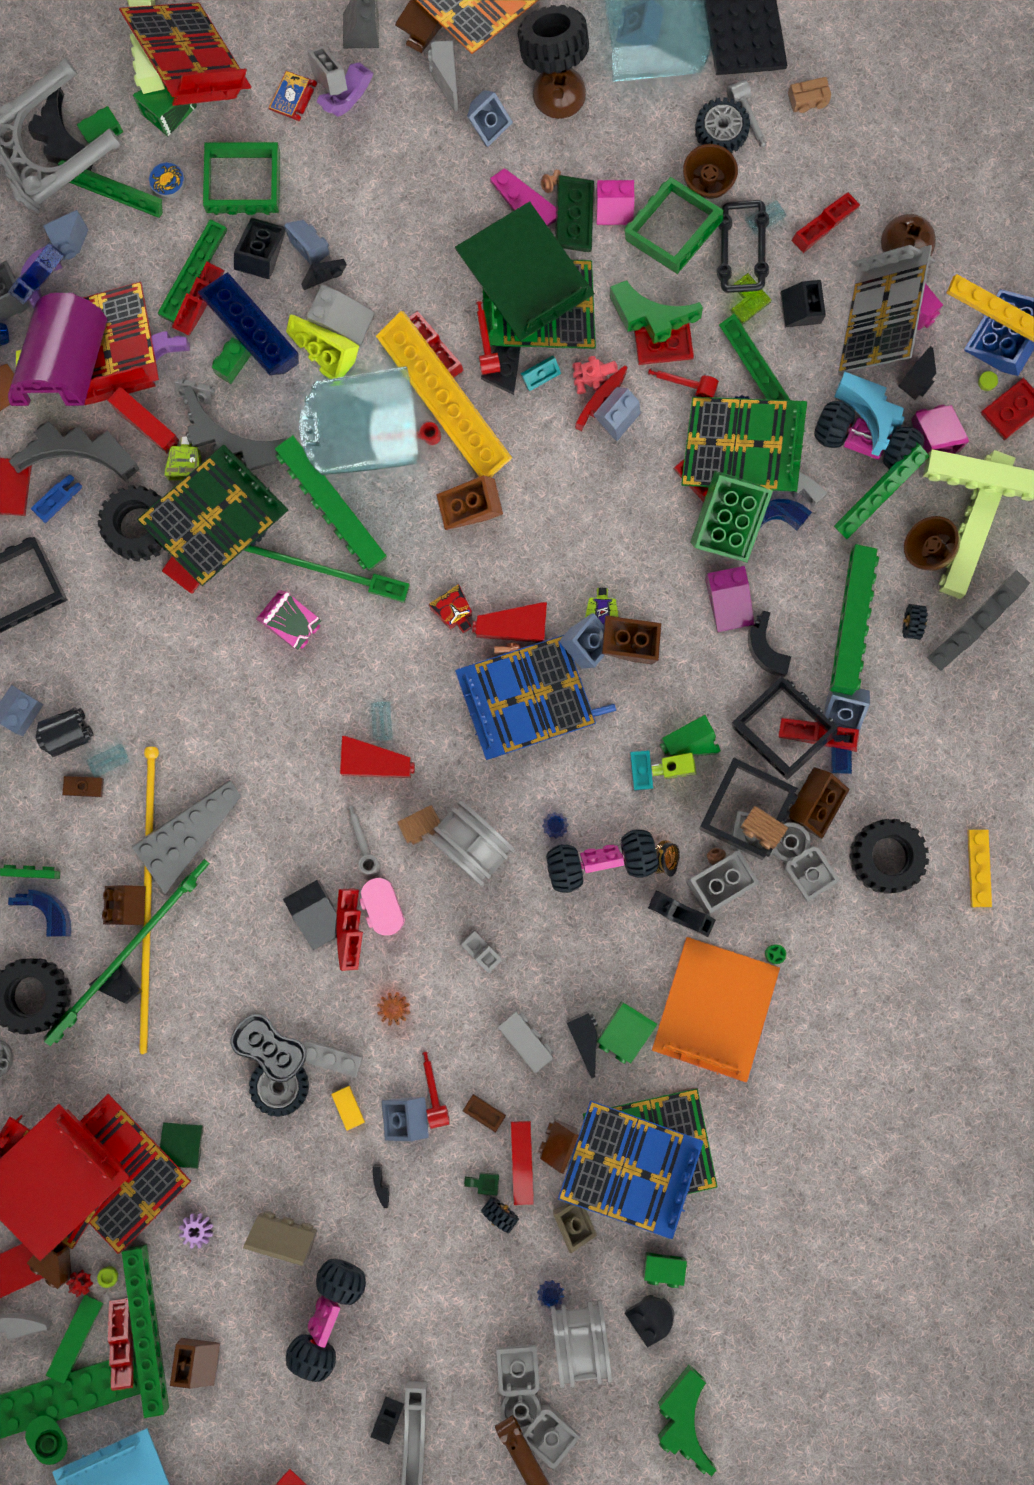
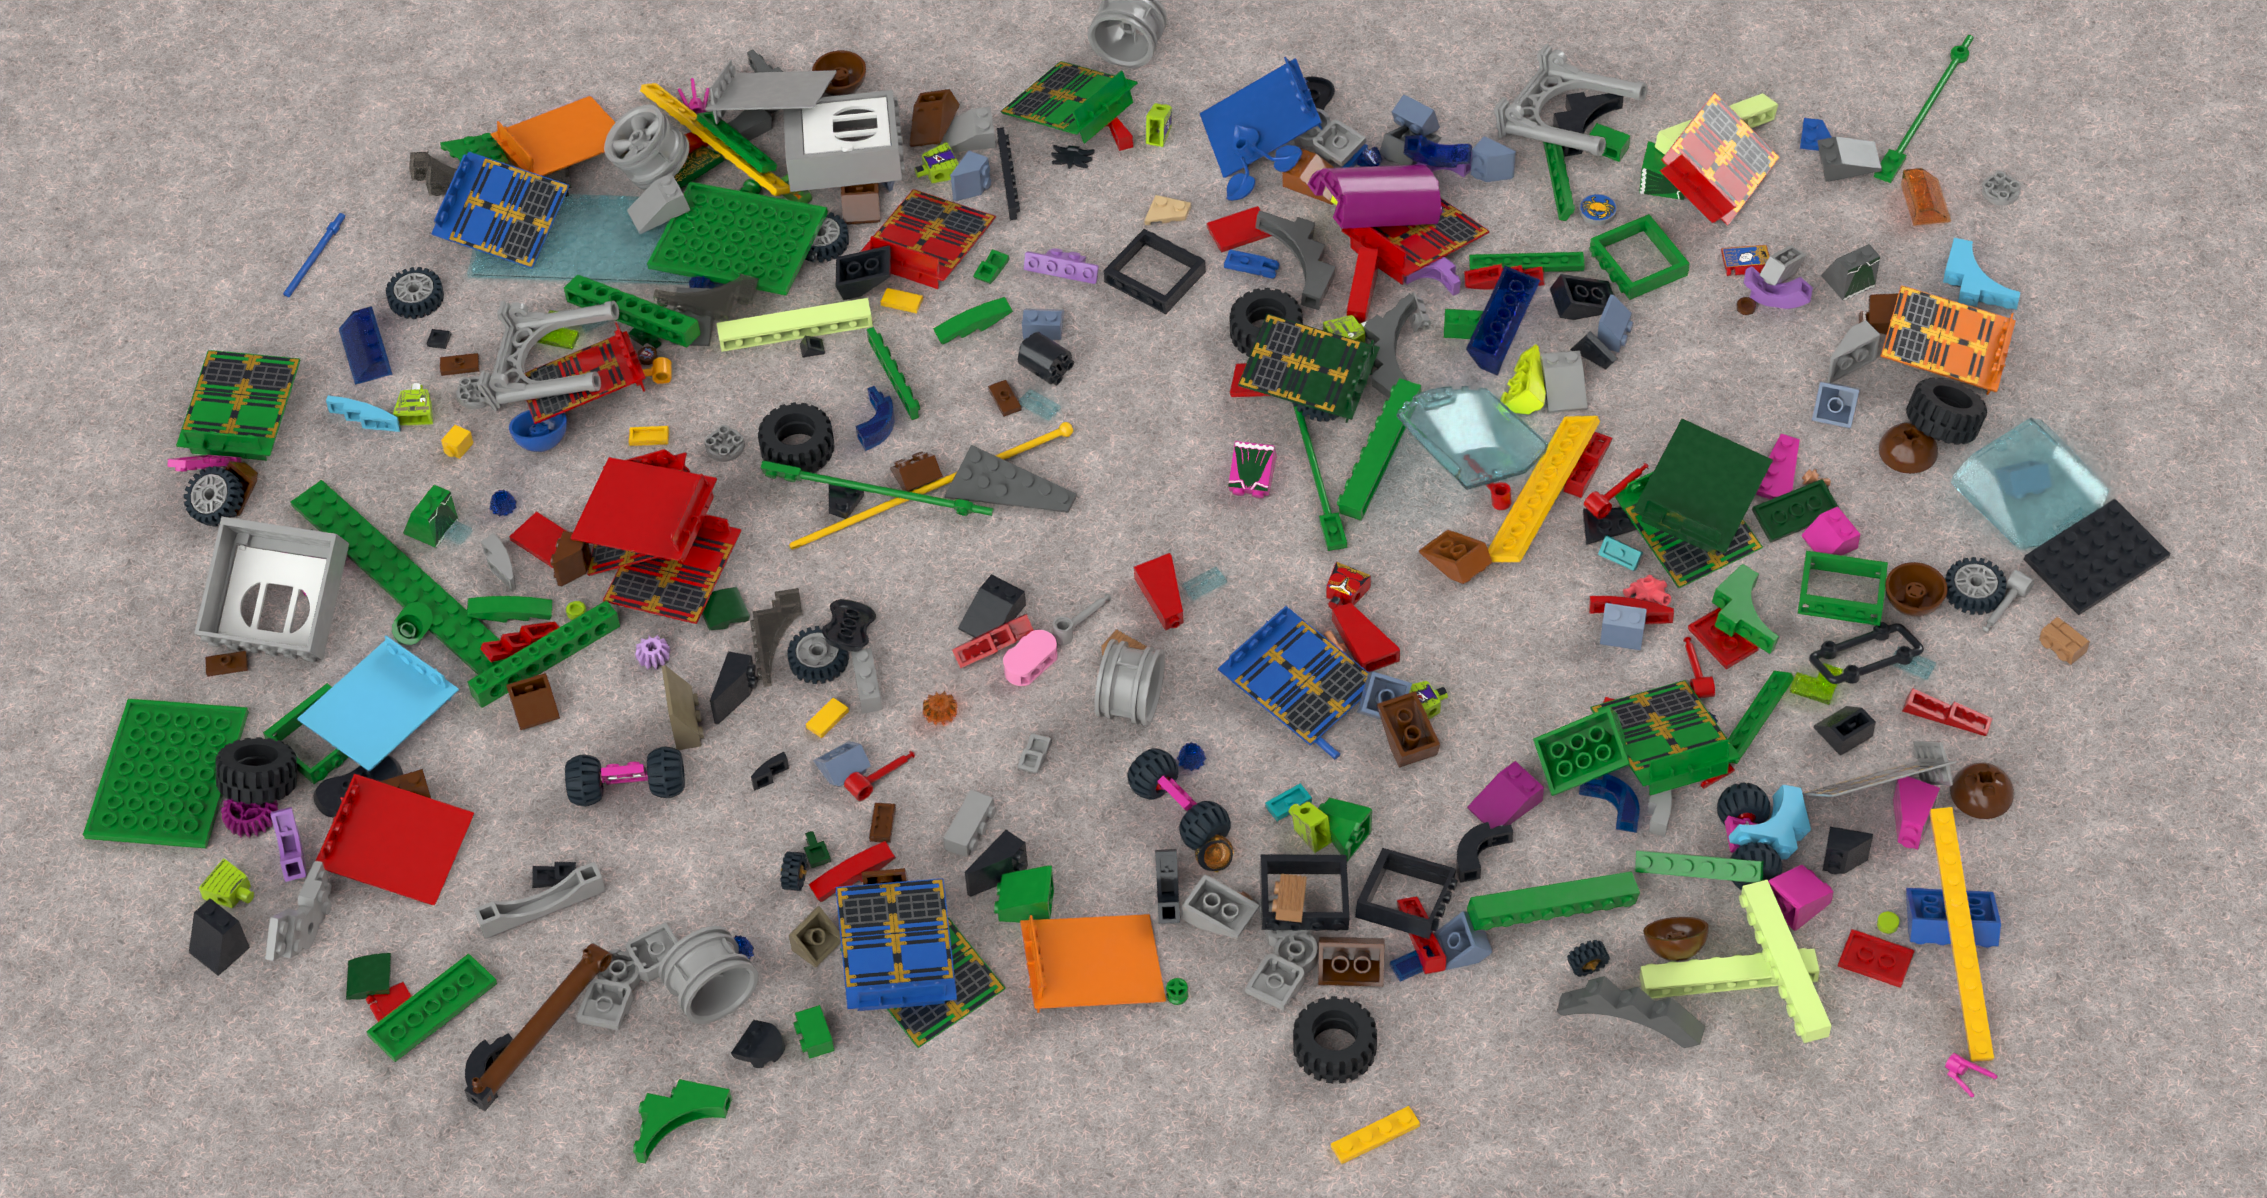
camera: 65 degrees right, 30 degrees down
(78, 1280) = (560, 589): red gear -> none
(228, 1117) = (770, 628): none -> clear smoke arch
(275, 1177) = (733, 685): none -> black slope
(341, 125) = (1746, 306): none -> reddish brown tile

